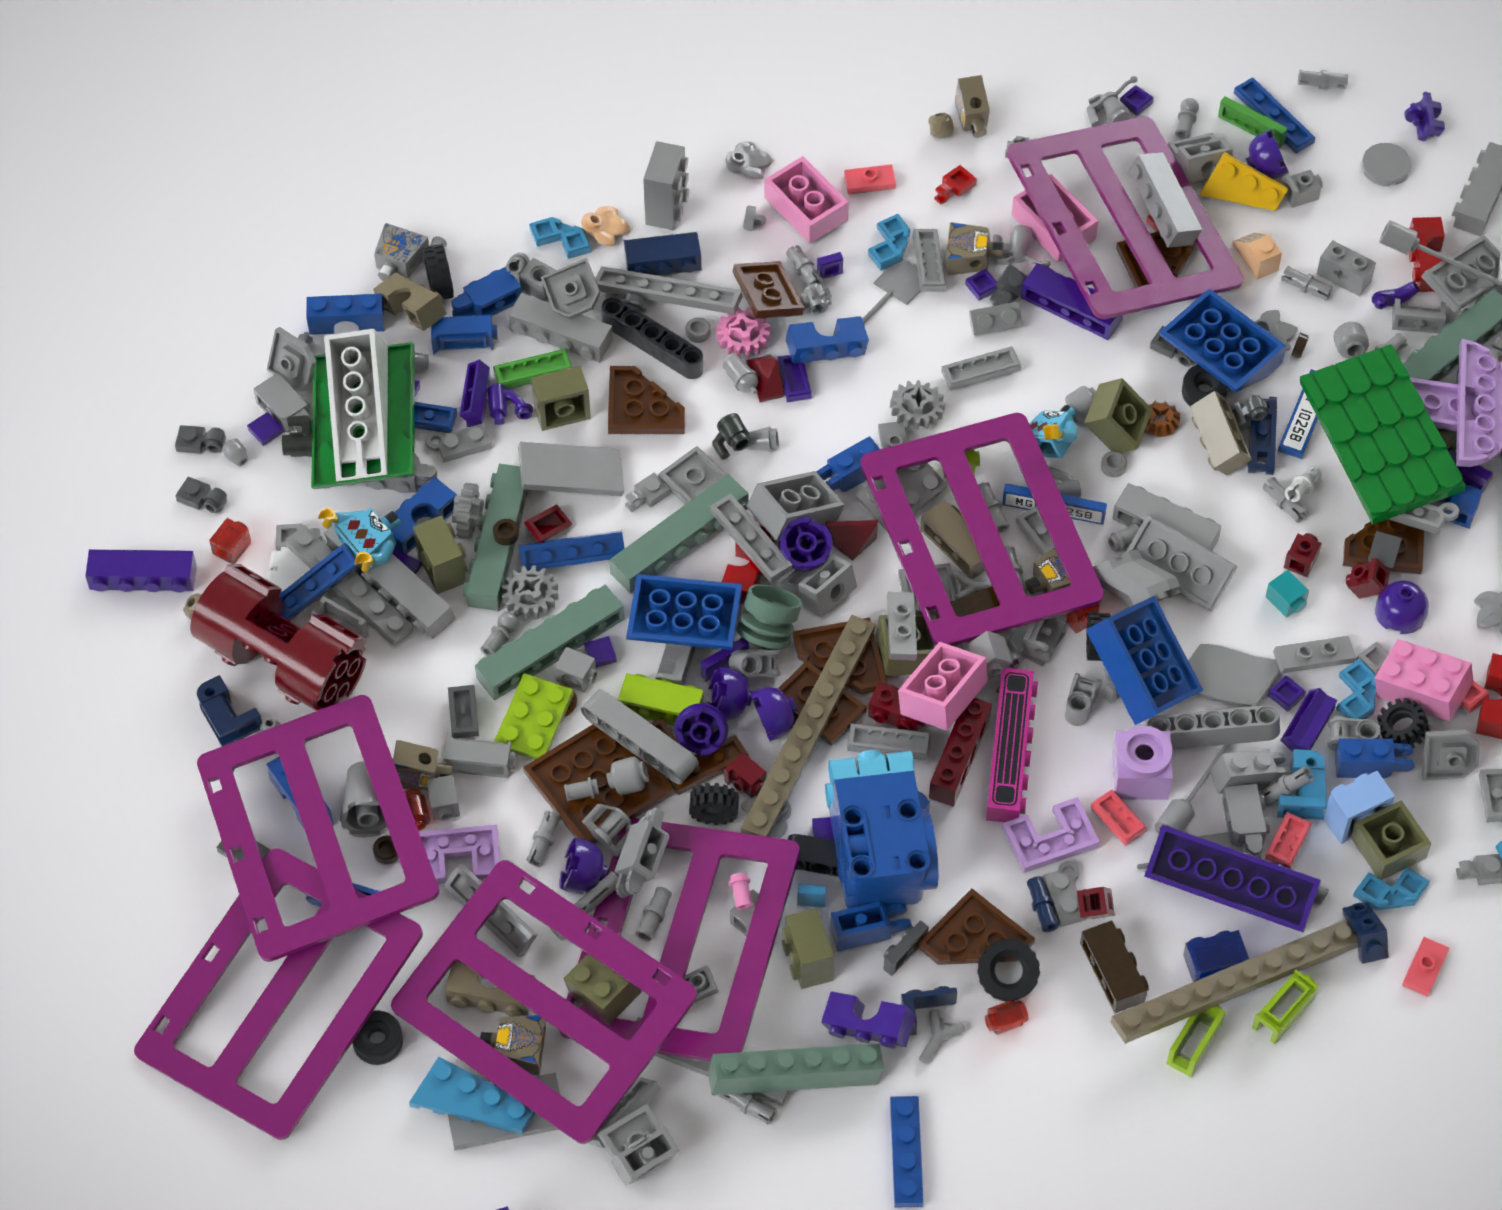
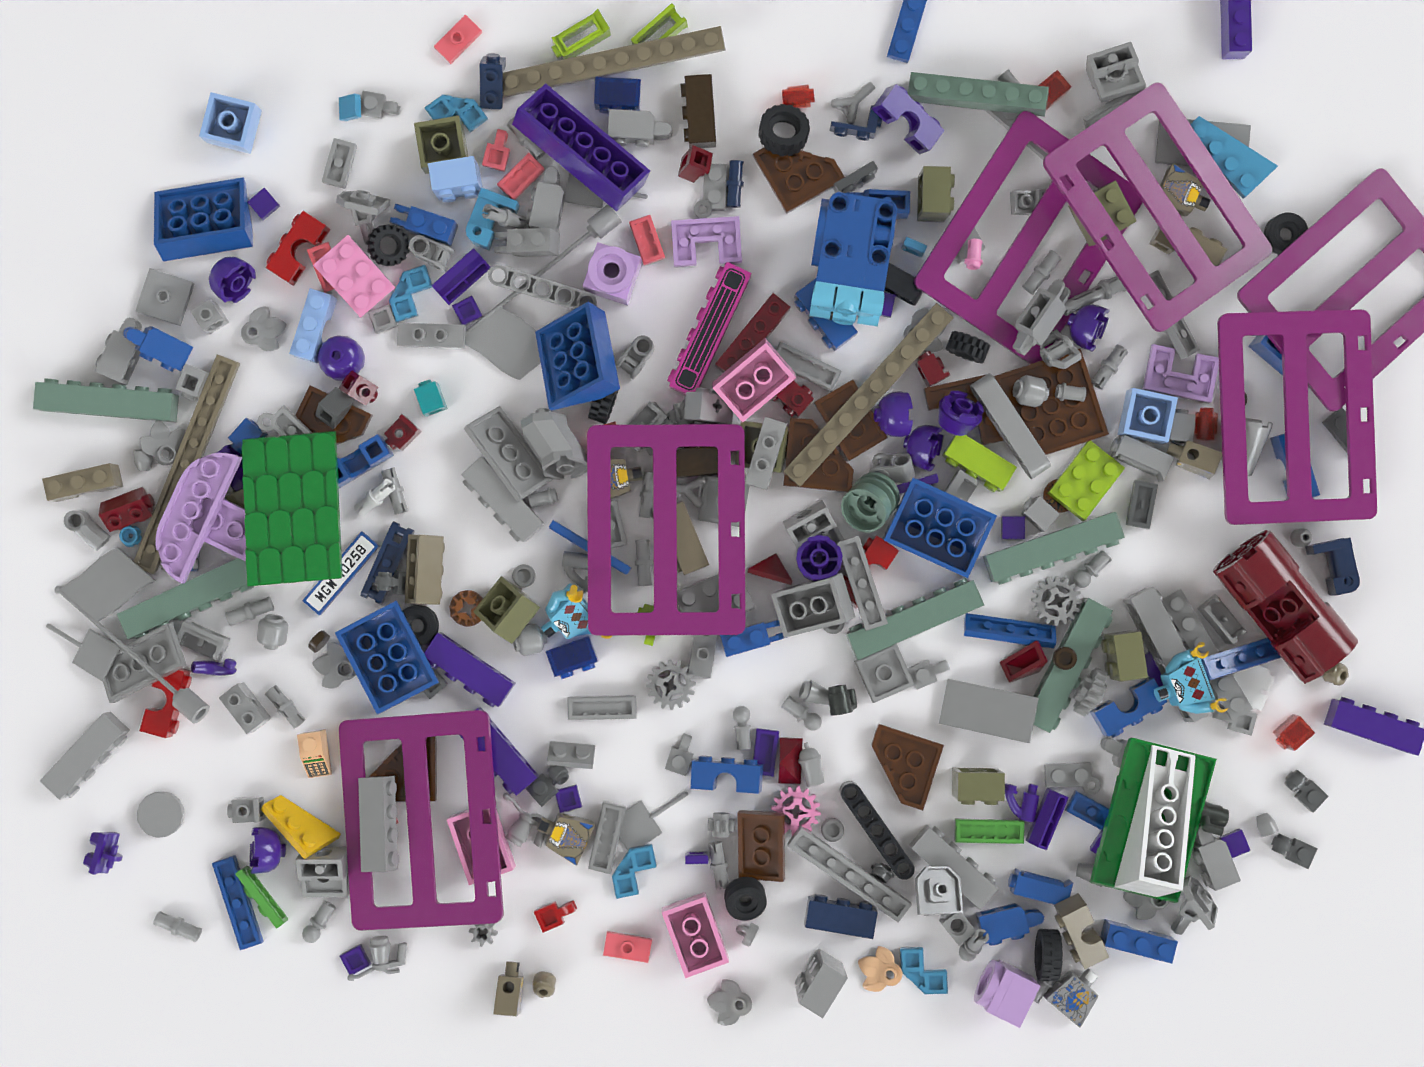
camera: 165 degrees left, 30 degrees up
(471, 232) = (1006, 992): none -> lavender piece
(485, 793) = (1147, 416): none -> light blue brick
(707, 1112) = (1057, 88): none -> clear red brick
(755, 414) = (811, 720): none -> light grey pin
(767, 242) = (745, 910): none -> black tyre
(826, 389) = (741, 715): none -> light grey pin
(881, 348) = (680, 758): none -> light grey plate
(1032, 398) = (572, 656): none -> clear blue brick
(1133, 362) = (469, 670): none -> dark purple brick
(1177, 926) = (636, 127): none -> light grey hinge
(1326, 854) = (497, 154): none -> coral plate
(1330, 518) = (366, 457): none -> blue arch
(1447, 619) = (308, 336): none -> light blue arch

